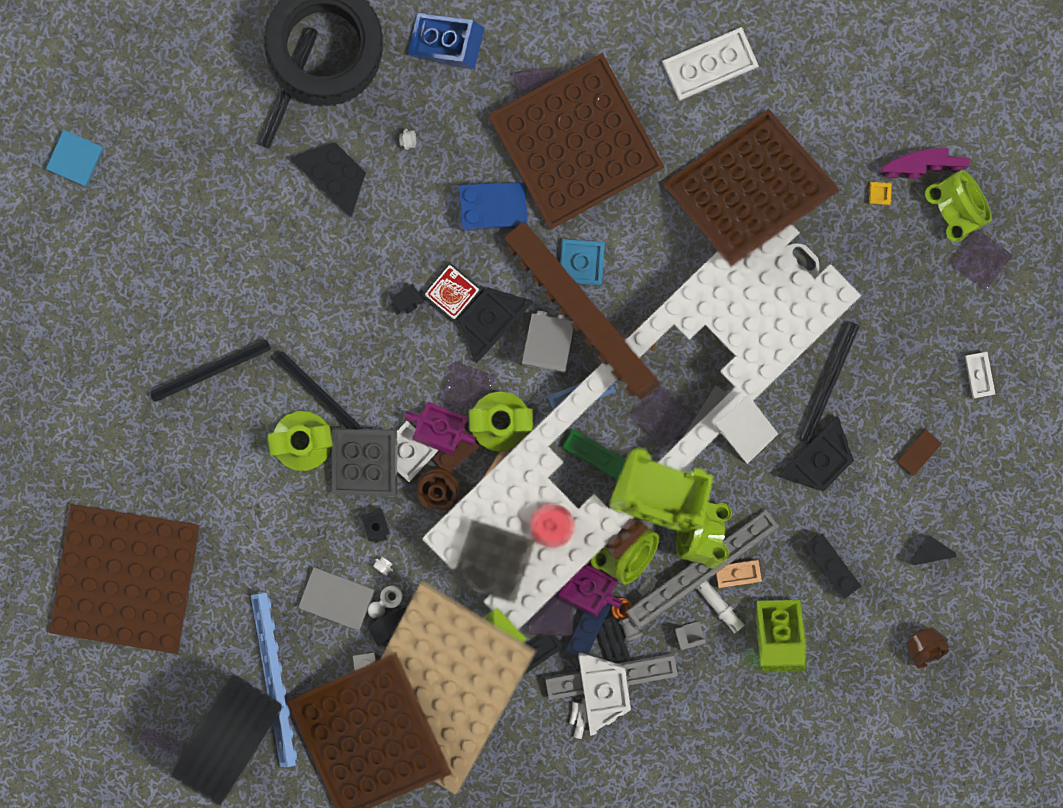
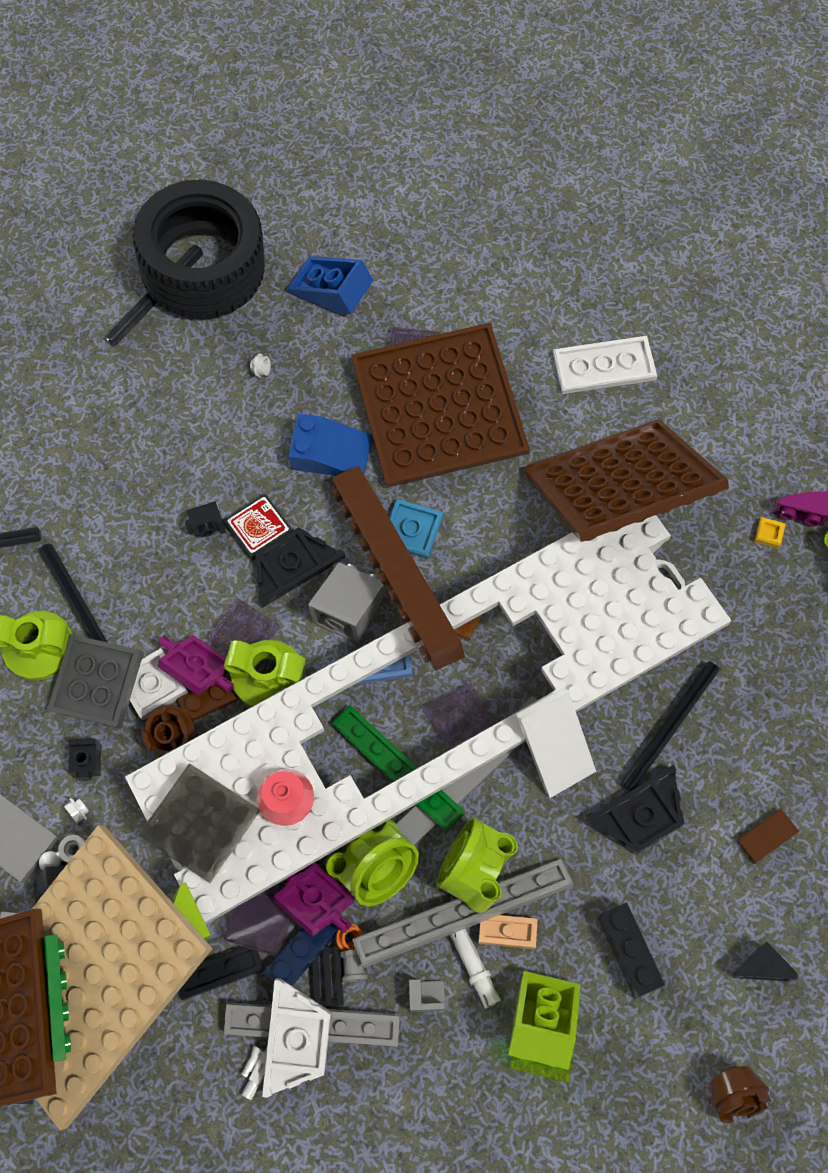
camera: 15 degrees right, 20 degrees down
(334, 174) = (171, 382): black wing -> none
(426, 700) = (58, 1011): none -> green plate
(626, 537) = (385, 830): reddish brown plate -> none
(662, 493) = (431, 790): lime windscreen -> none

